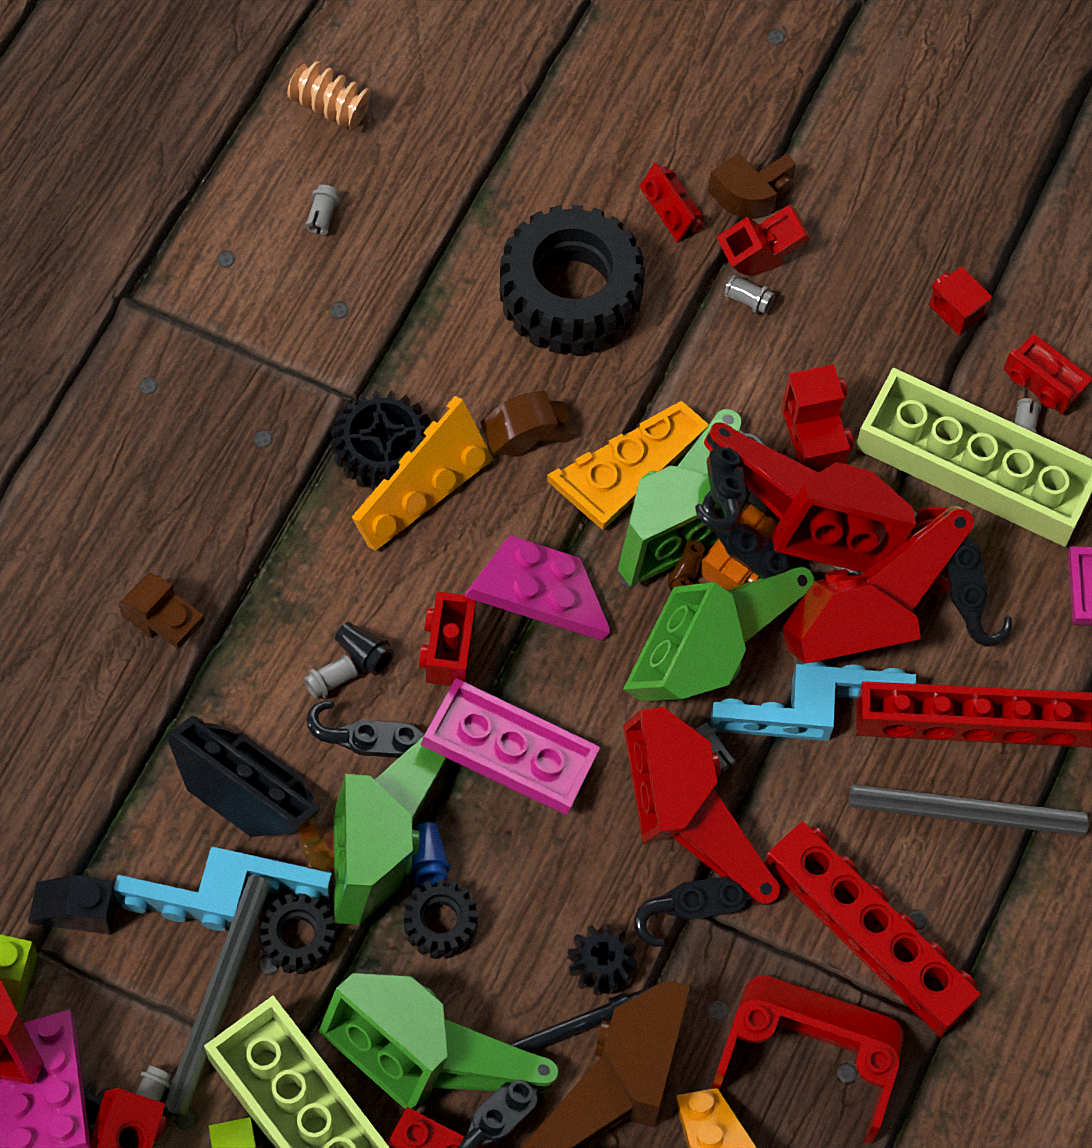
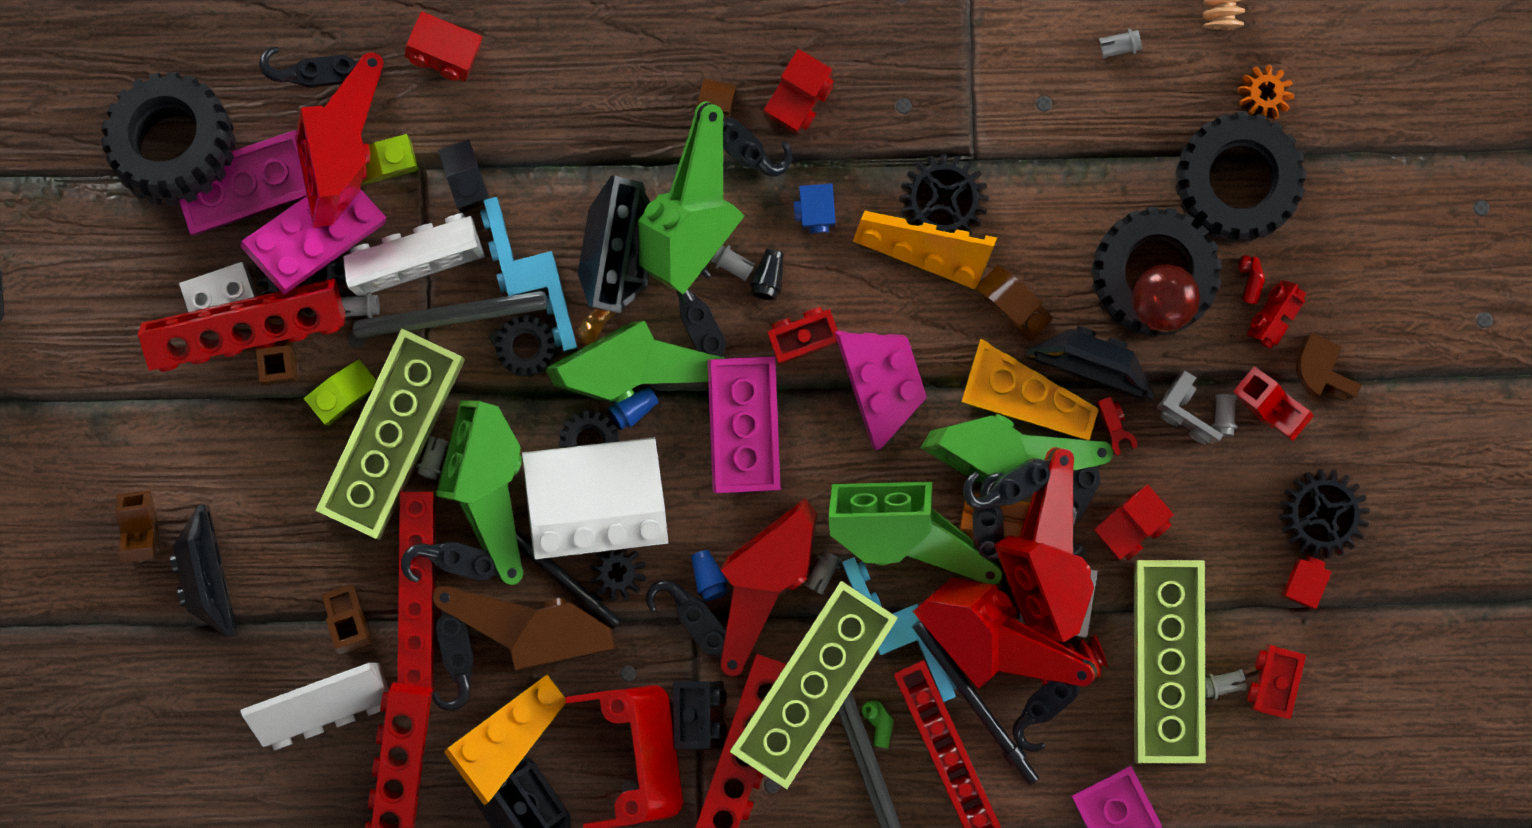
camera: 70 degrees right, 20 degrees up
(130, 996) = (412, 256): none -> white slope
(186, 515) = (800, 89): none -> red brick
(266, 682) = (693, 220): none -> bright green slope
(320, 564) = (816, 208): none -> blue brick
(368, 1099) = (432, 458): none -> light grey pin
(448, 107) = (1277, 94): none -> orange gear
(508, 937) = (594, 498): none -> white slope
(513, 121) = (1268, 142): none -> black tyre
(606, 265) = (1166, 298): none -> clear red cylinder
(624, 201) = (1256, 278): none -> red arm
(632, 380) = (1094, 361): none -> black wedge
(655, 867) = (708, 576): none -> blue cone
(688, 566) = (952, 481): reddish brown arm -> none
(703, 396) = (1111, 416): none -> red plate
(723, 327) = (1178, 395): none -> light grey bracket
(803, 953) = (699, 714): none -> black bracket
(836, 800) = (813, 684): none -> yellowish green brick
(877, 262) = (1329, 528): none -> black gear
(903, 770) = (881, 720): none -> bright green arm
(999, 655) = (1012, 752): none -> black bar

